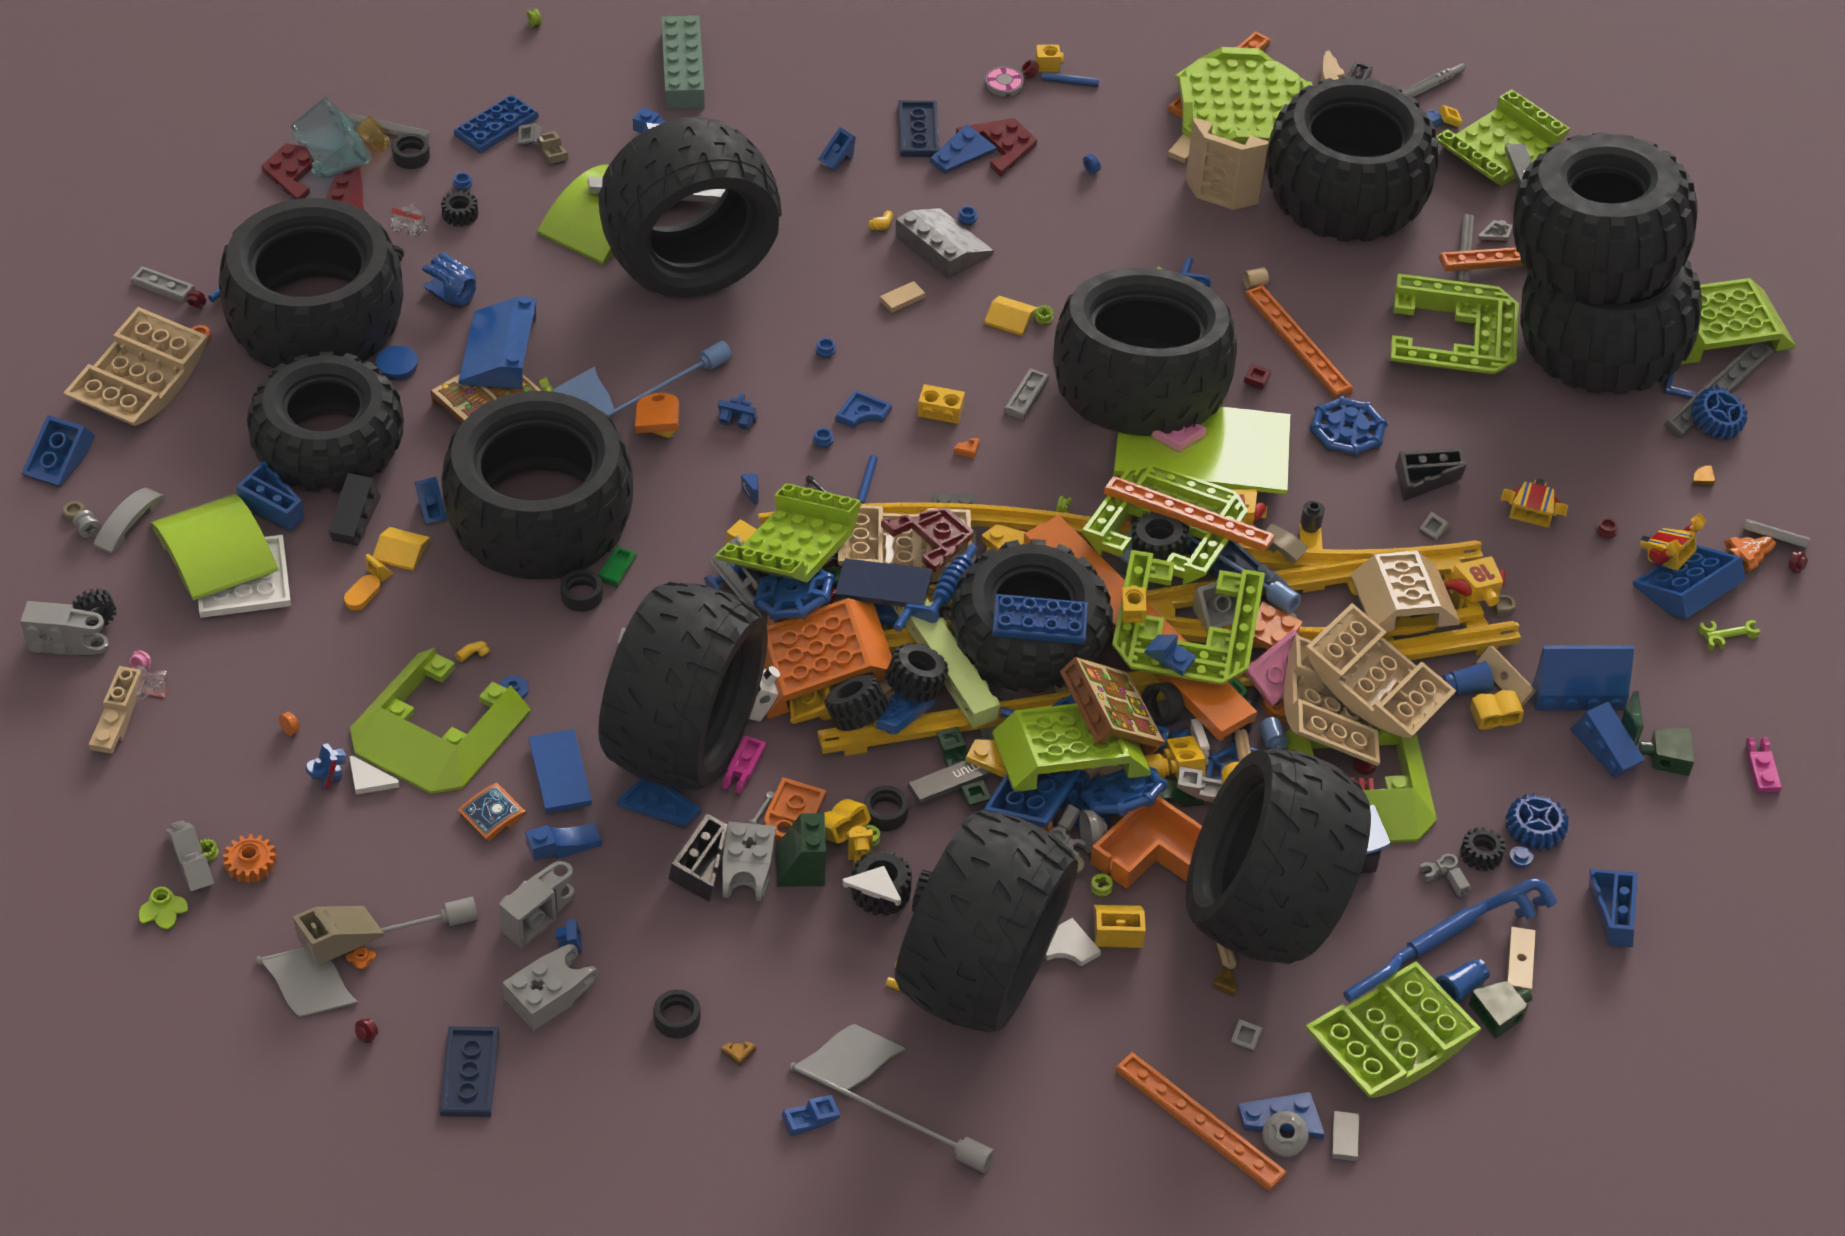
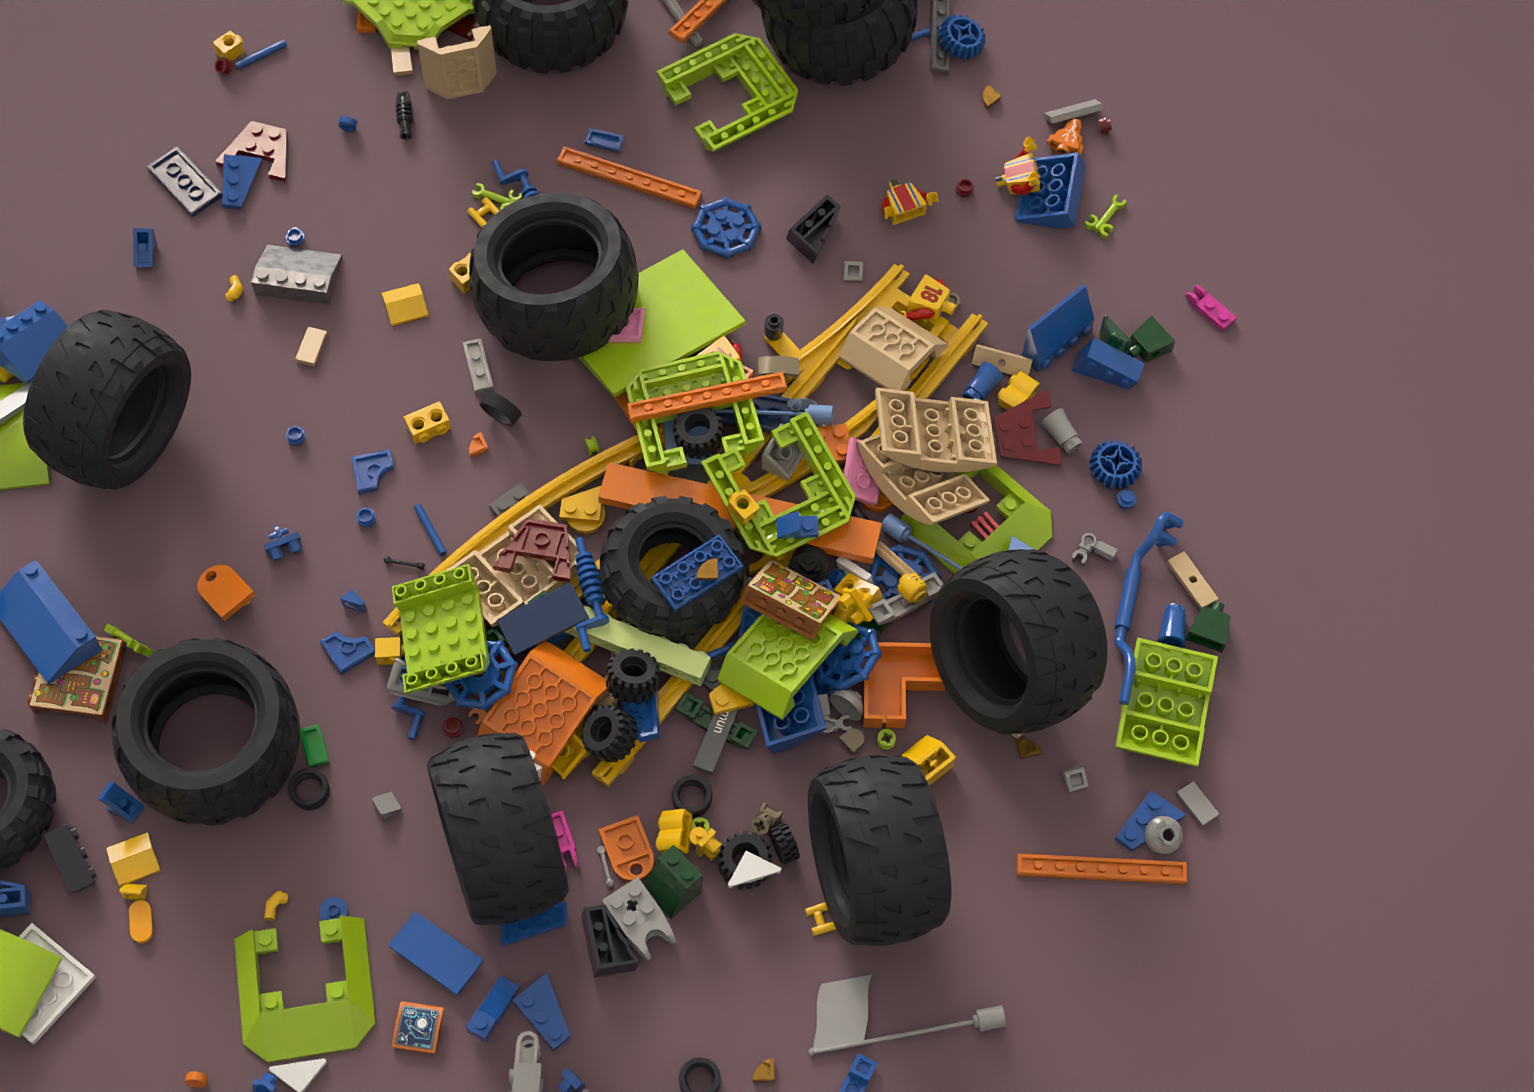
camera: 40 degrees left, 15 degrees up
(590, 389) = (157, 619): medium blue flag -> none
(601, 874) = (543, 1012): none -> blue wing
(710, 519) = (346, 651): none -> blue tile
(920, 860) = (767, 818): none -> dark tan connector
(1004, 81) = (212, 91): tile -> none
(1010, 427) = (500, 408): none -> black tyre
(1044, 310) = (432, 282): lime bush -> none
(1048, 618) = (708, 571): none -> pearl gold tile
(1146, 185) = (404, 114): none -> black hinge
(1168, 743) = (858, 602): none -> yellow hips
(1255, 277) = (555, 143): tan beam -> none
(1257, 376) = (632, 229): dark red plate -> none
(1303, 301) = (604, 139): none -> blue tile
(1464, 736) = (1017, 433): none -> dark red wing
(1480, 858) = (1099, 522): black tyre -> none
(1510, 760) = (1062, 430): none -> light grey plant
(1616, 903) = (1217, 491): blue wedge -> none

